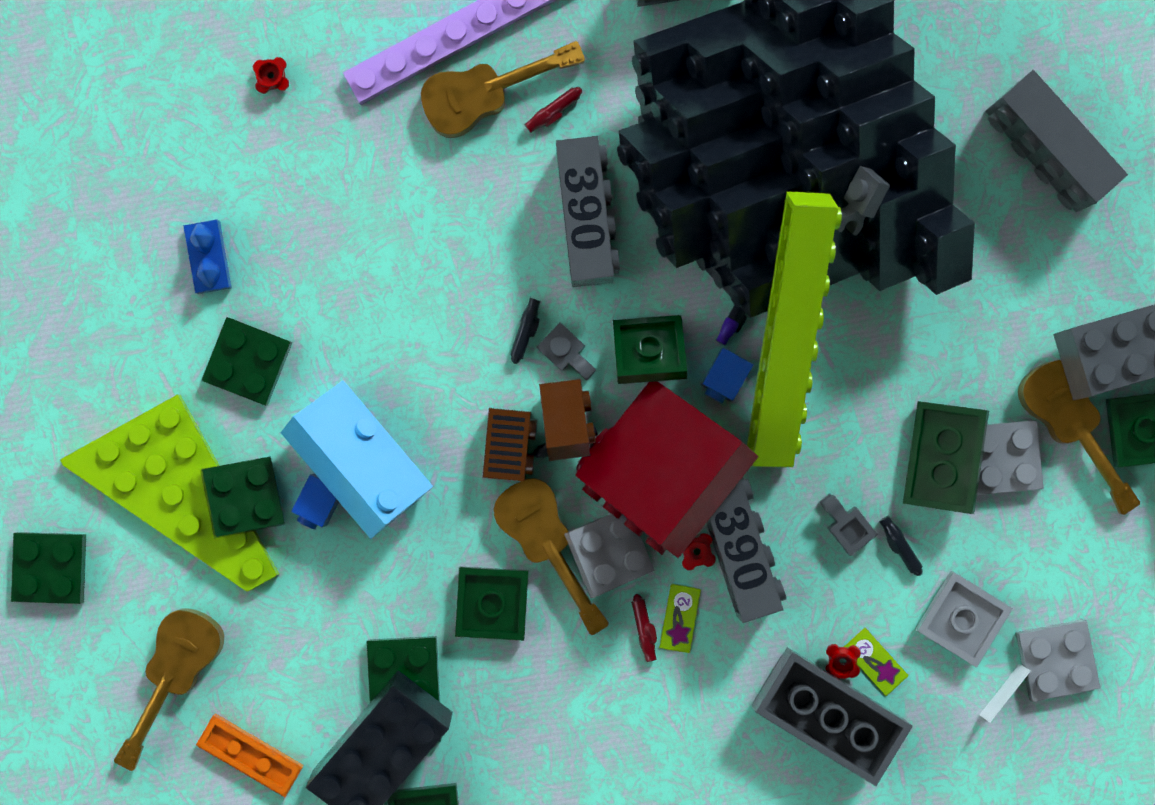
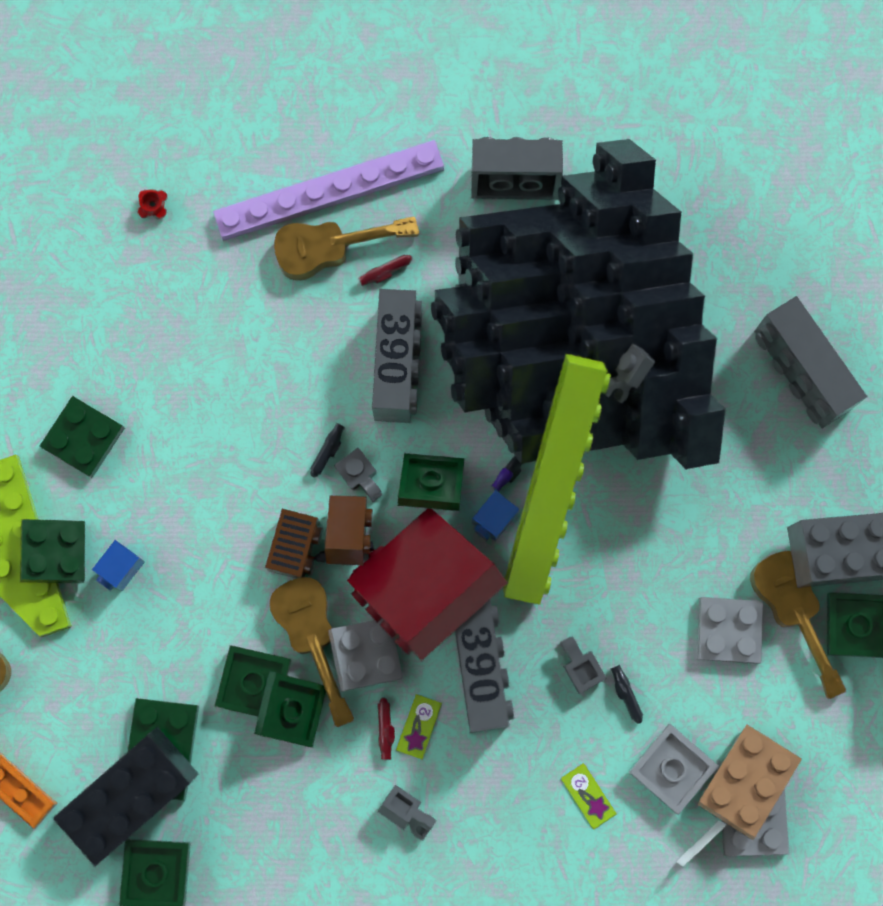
camera: 10 degrees right, 10 degrees down
(207, 256) = (67, 343): blue tile -> none
(356, 459) = (158, 533): medium azure brick -> none
(539, 627) = (290, 709): none -> dark green plate
(679, 713) = (403, 809): none -> dark grey plate
(704, 558) = (449, 674): red plate -> none
(831, 716) = (540, 836): dark grey brick -> none
(846, 669) = (550, 793): red plate -> none
(946, 457) = (677, 619): dark green plate -> none
(1049, 620) = (749, 782): none -> medium nougat plate

